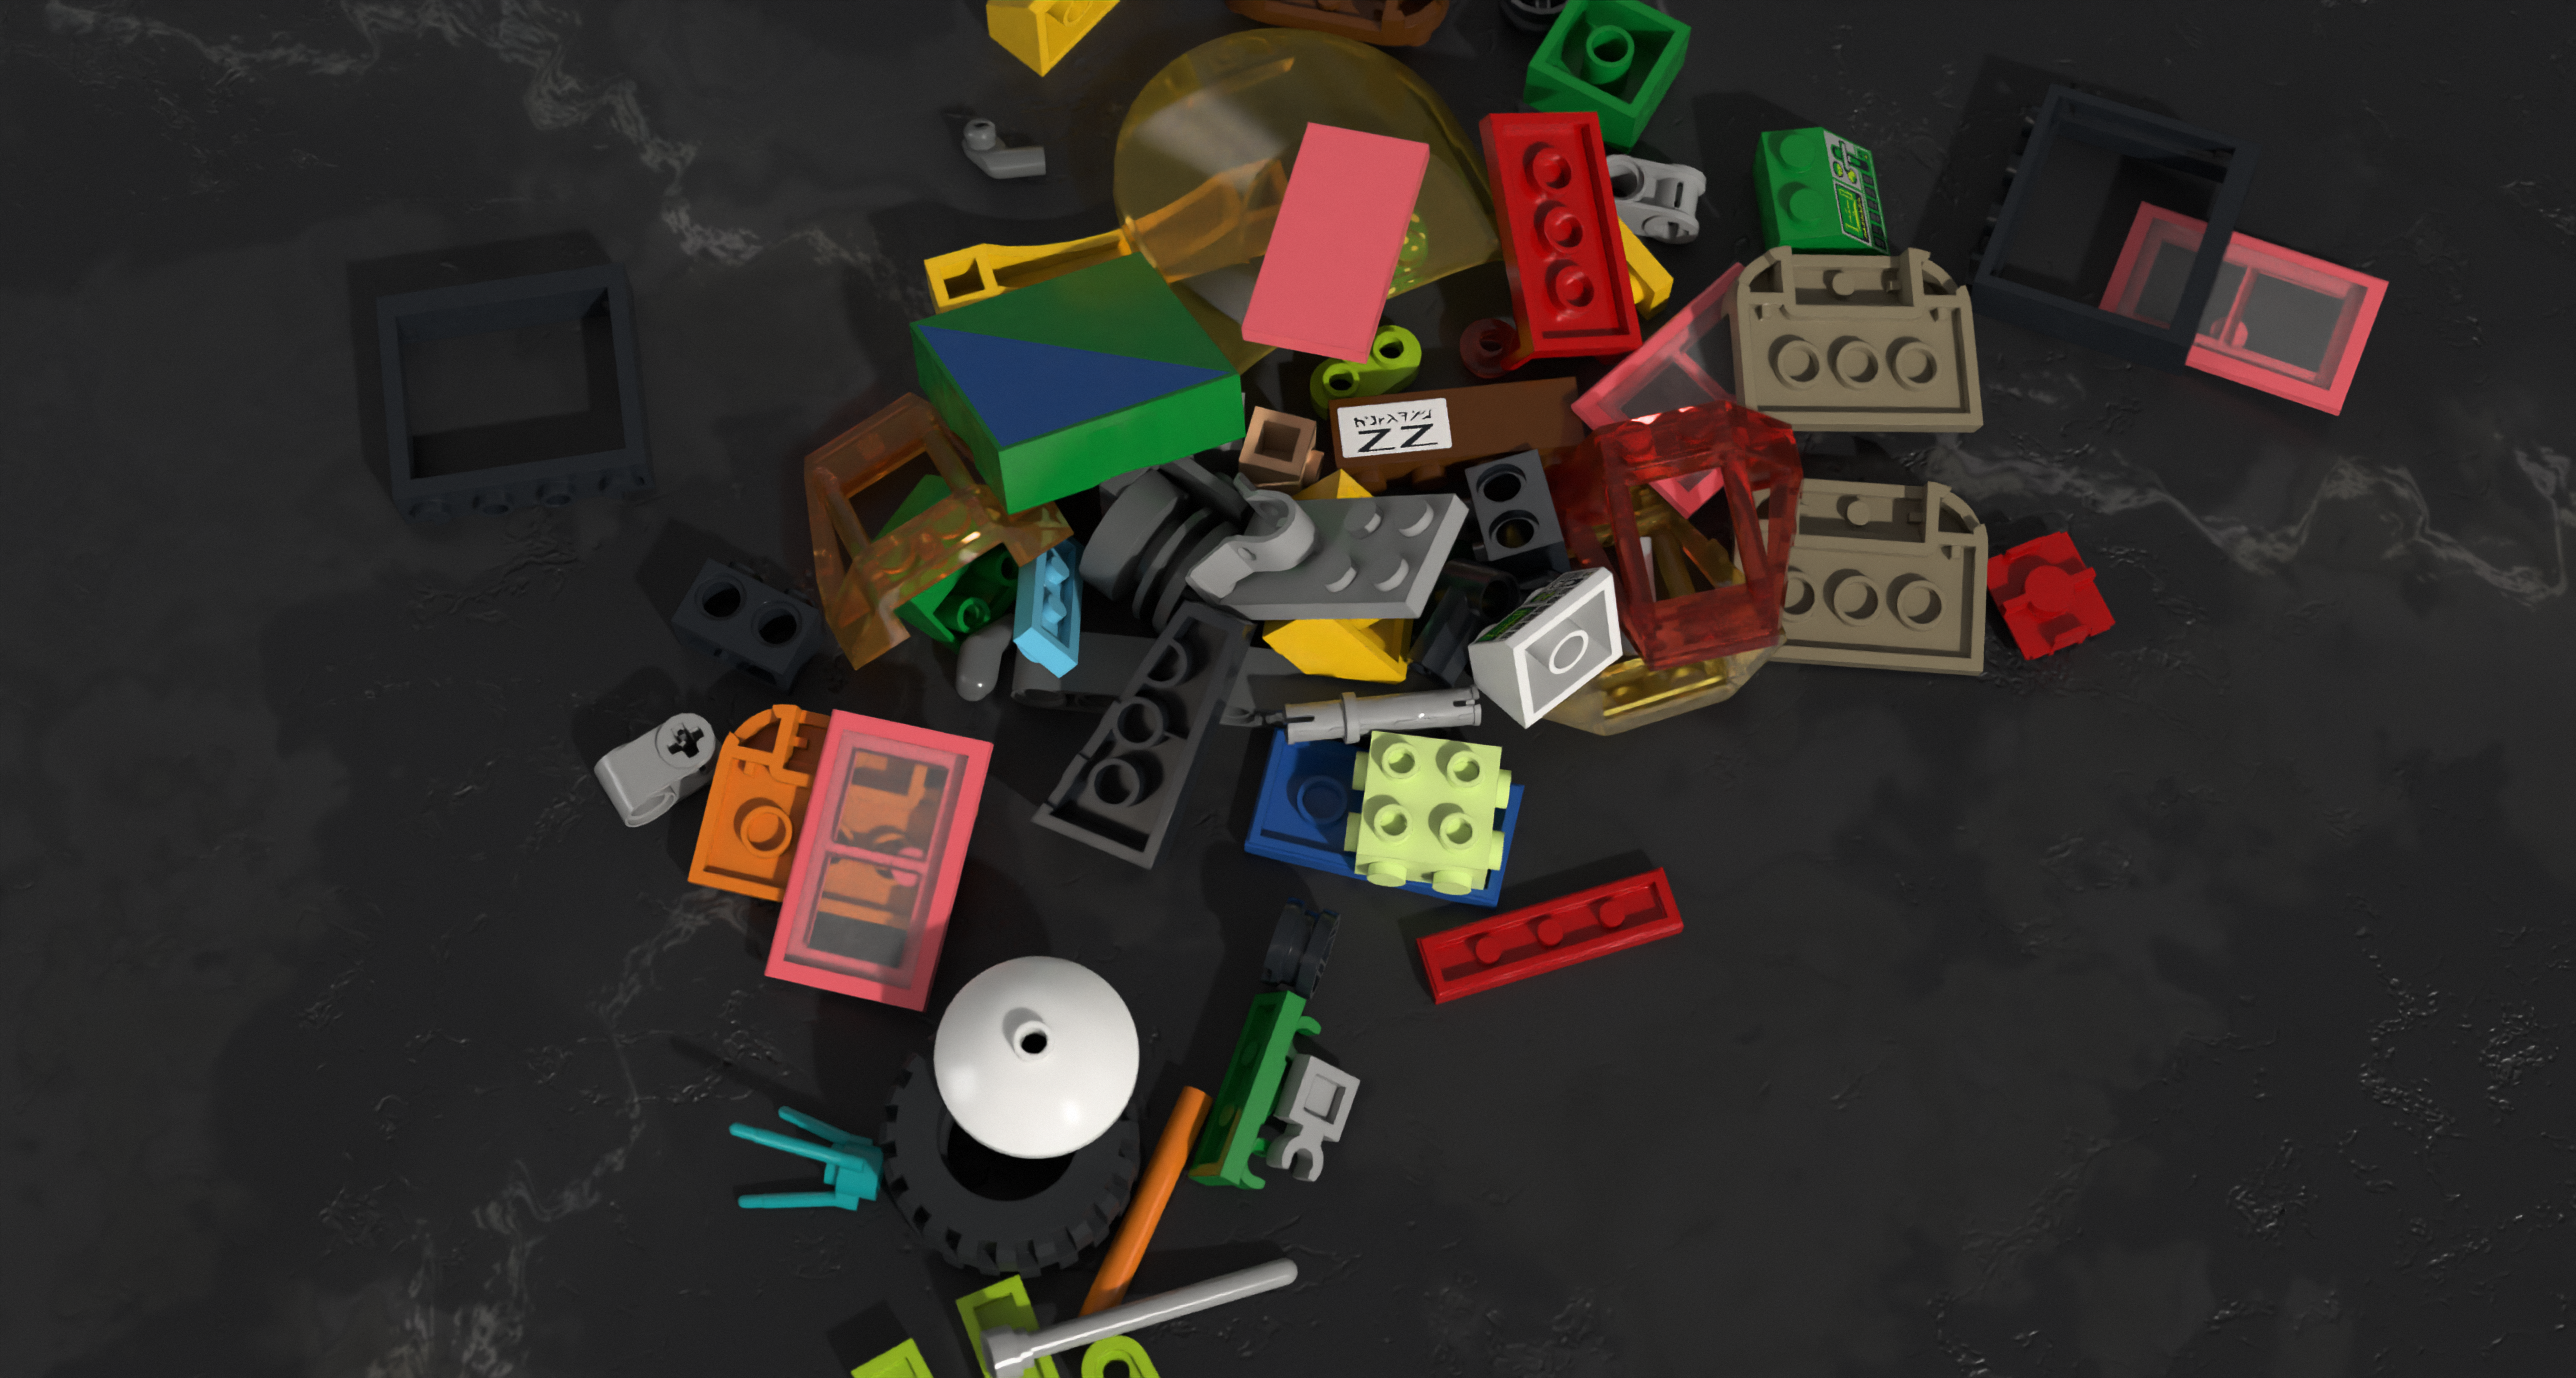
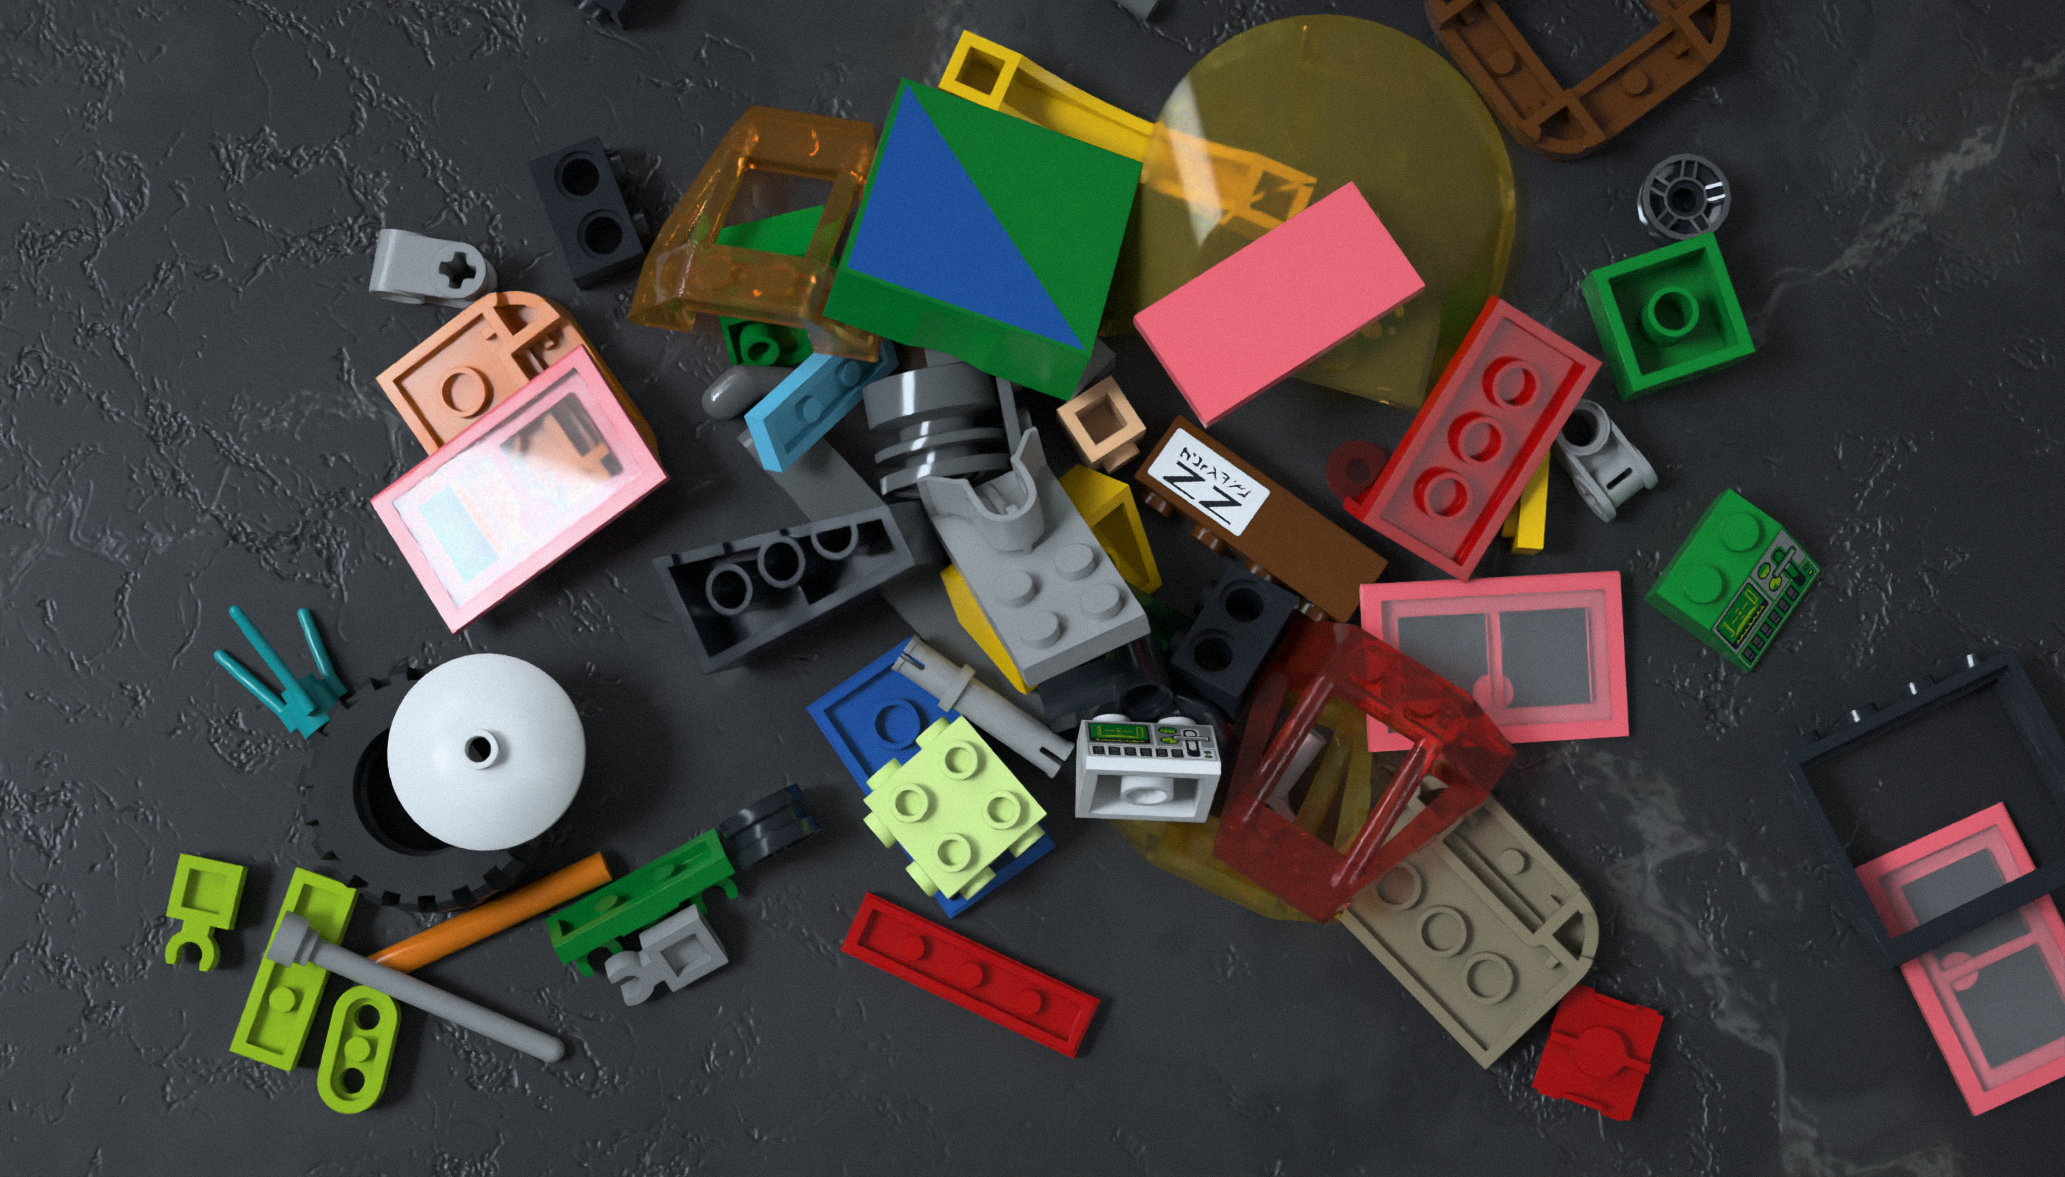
camera: 45 degrees right, 15 degrees up
(1375, 377) = (1249, 421): lime plate -> none
(1854, 343) = (1636, 723): dark tan plate -> none

